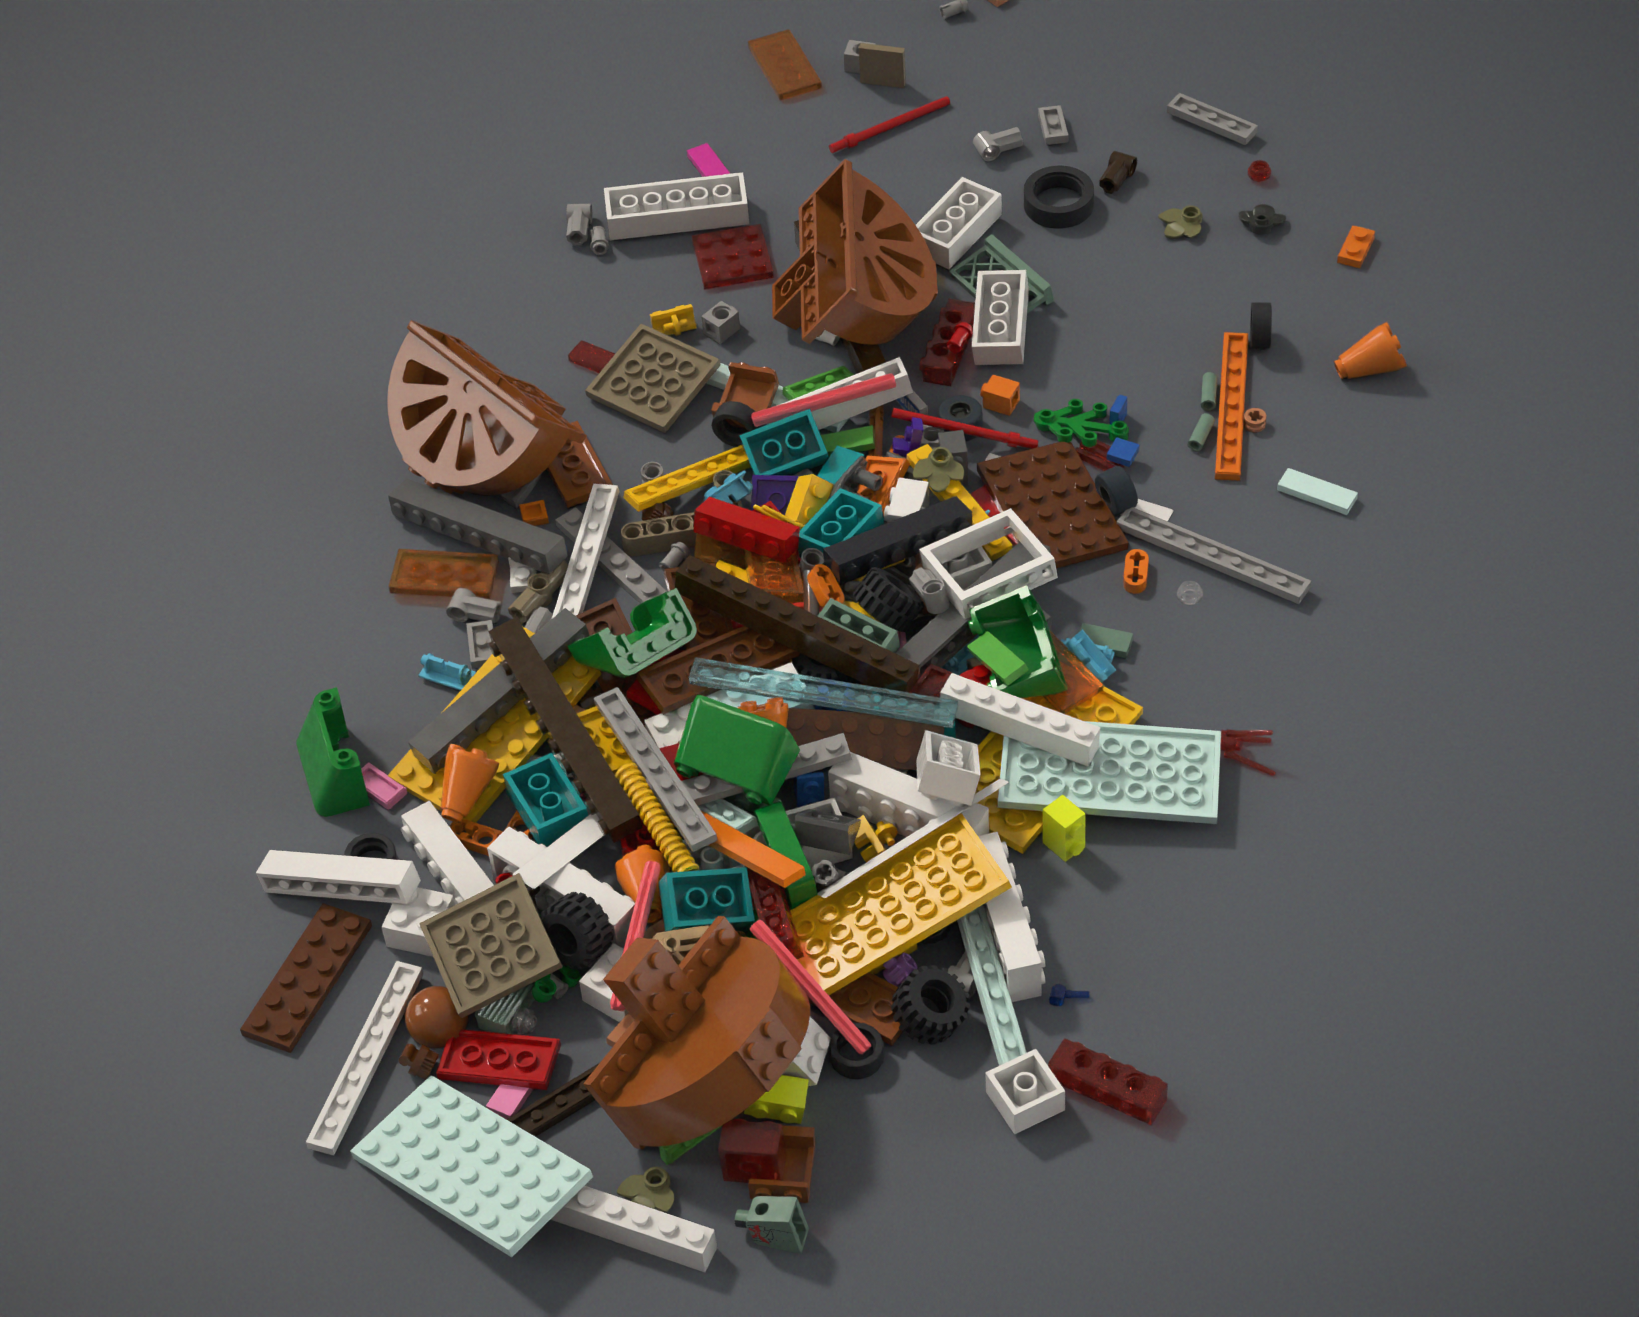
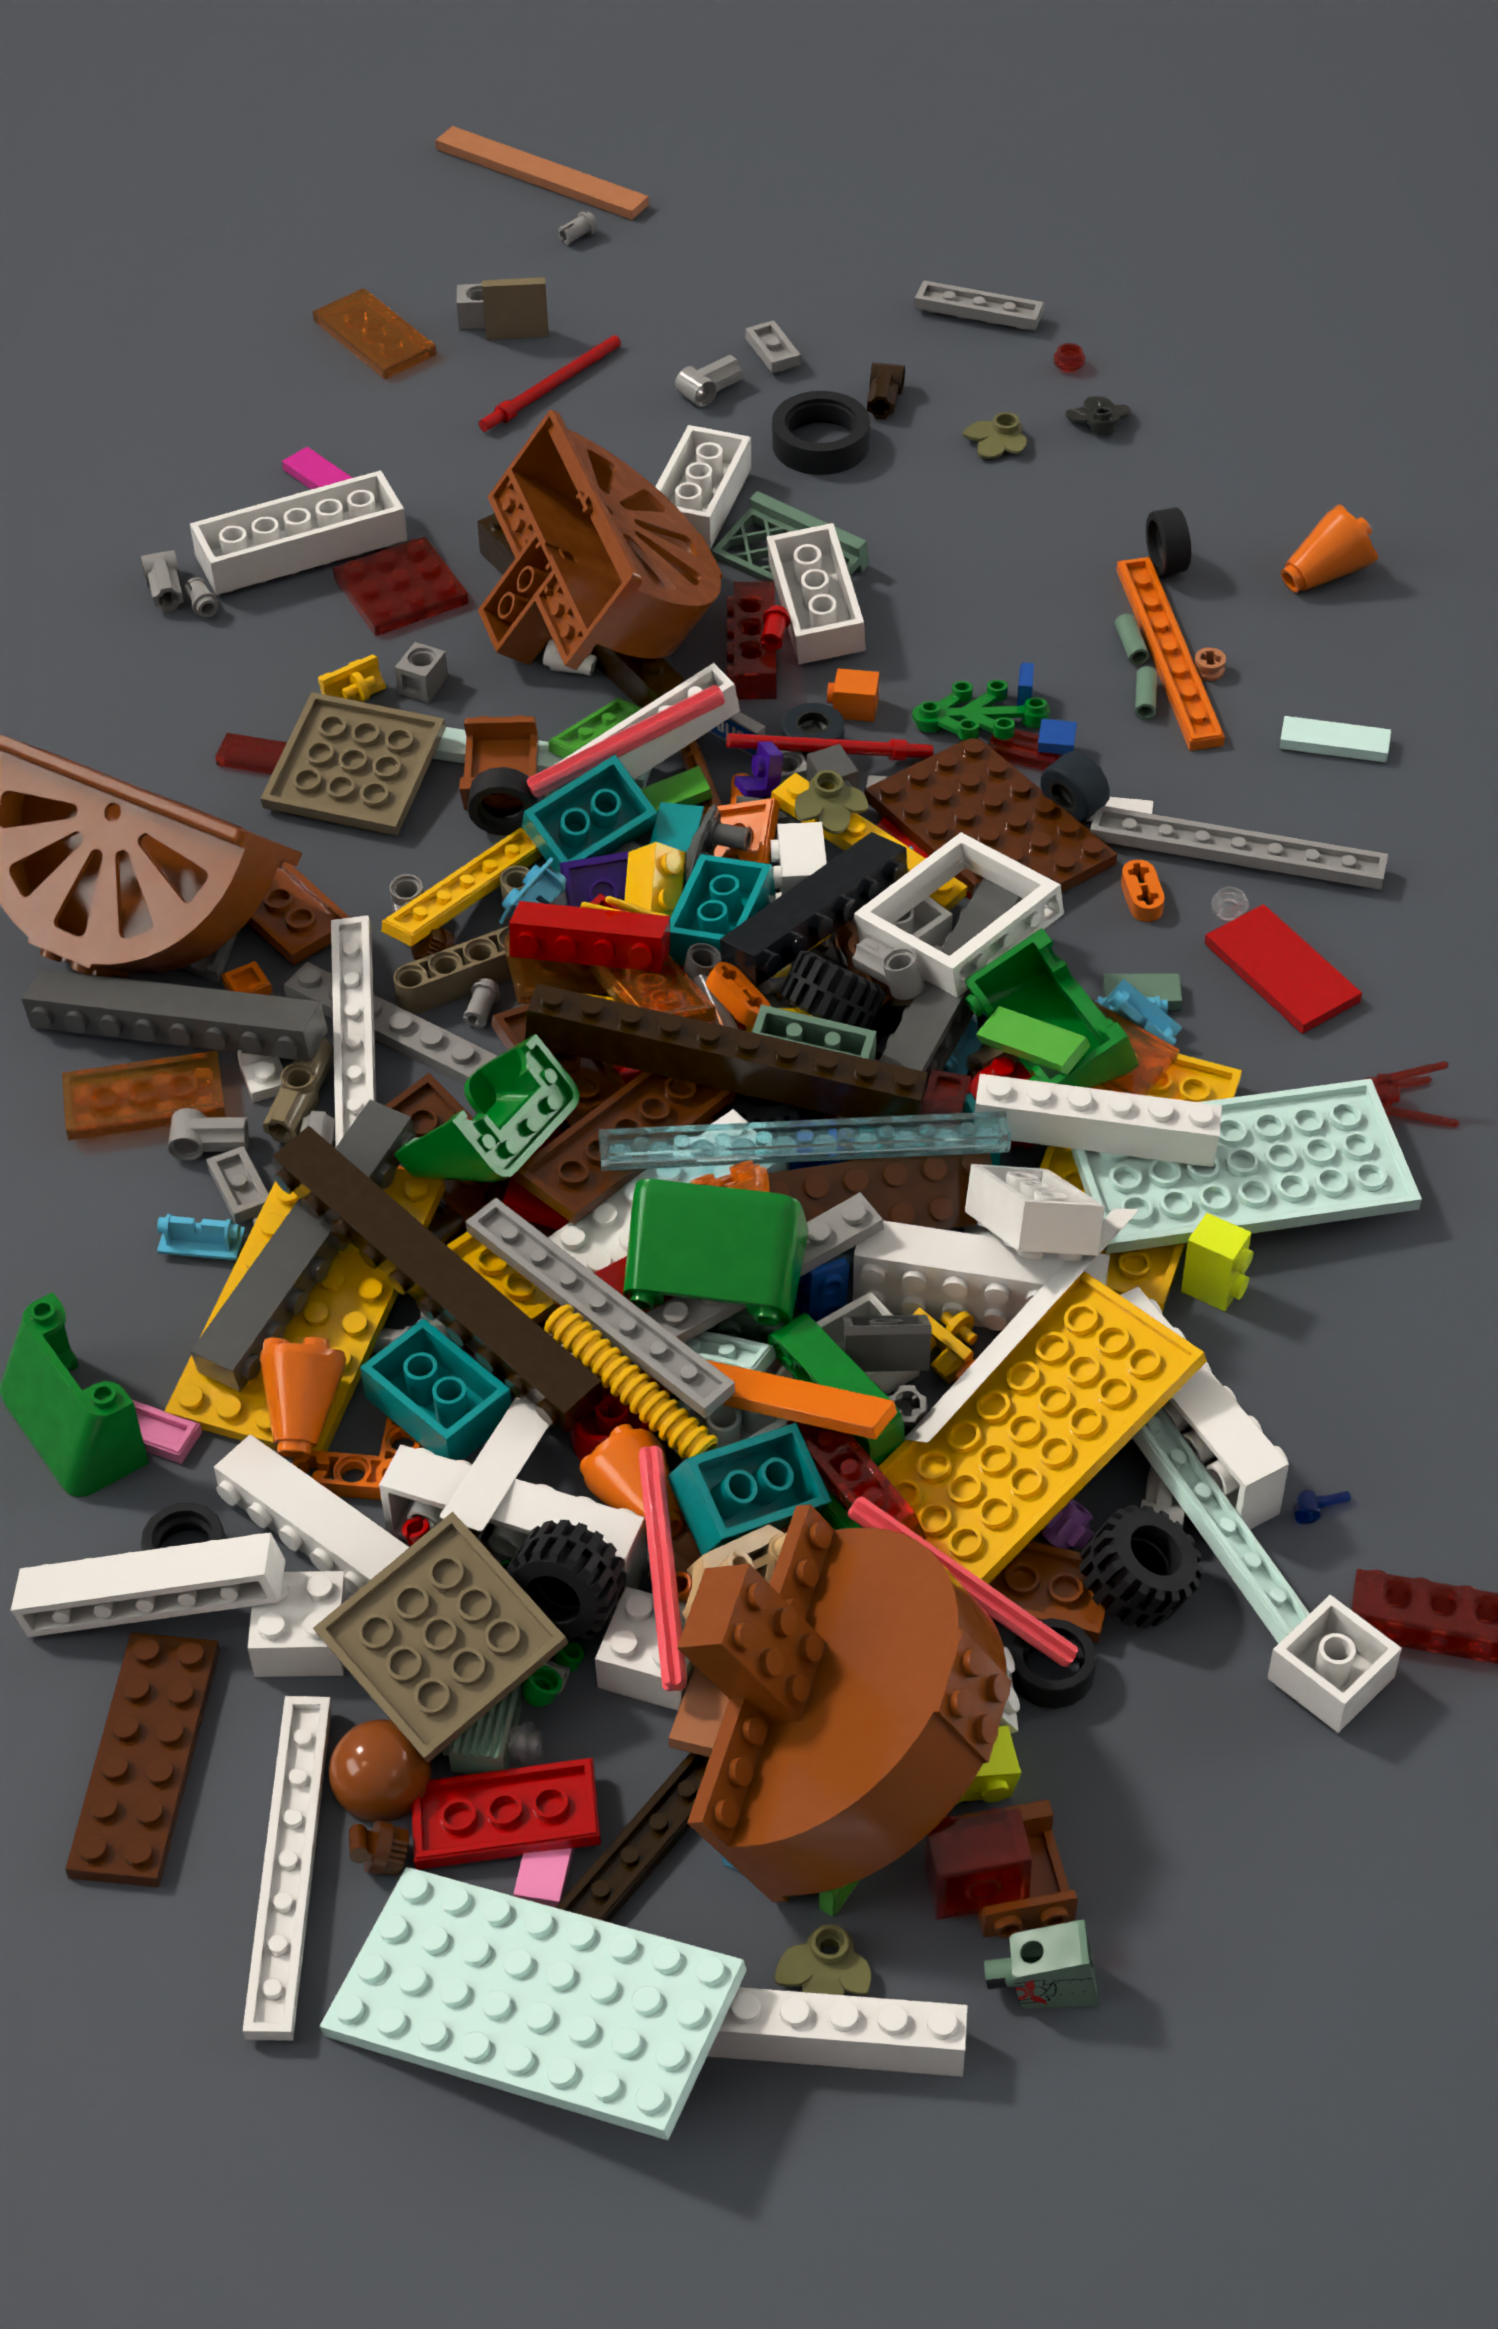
camera: 20 degrees left, 0 degrees up
(1206, 644) = (1283, 968): none -> red tile
(1356, 246) = (1236, 427): orange plate -> none

